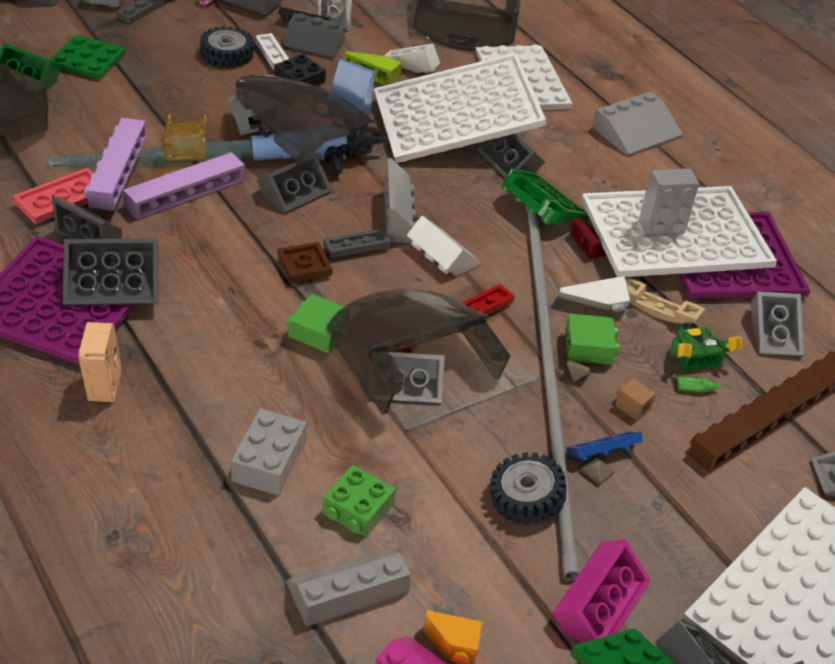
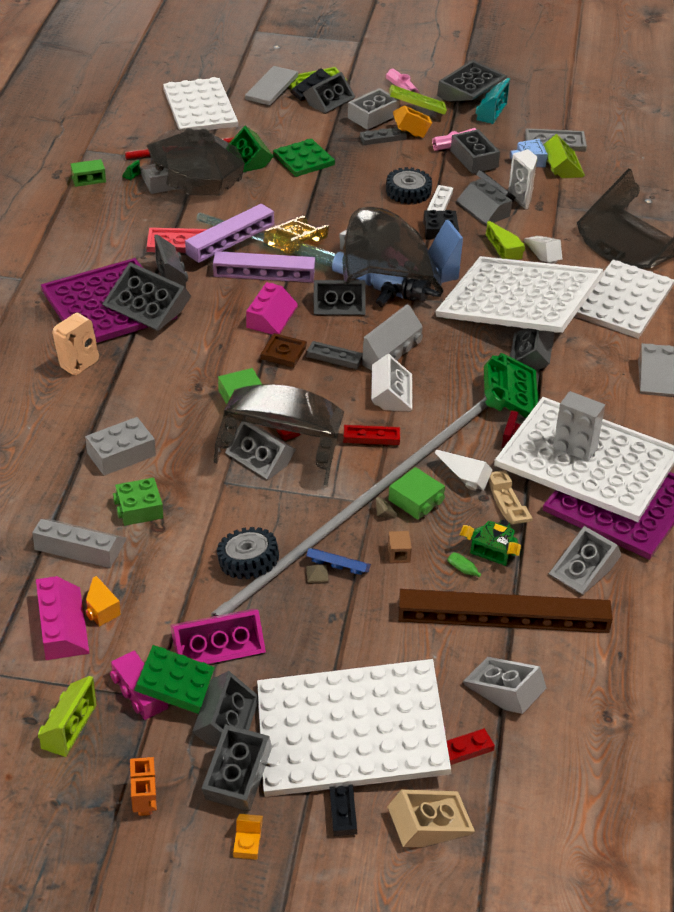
camera: 45 degrees right, 0 degrees up
(243, 227) = (270, 309): none -> dark pink slope

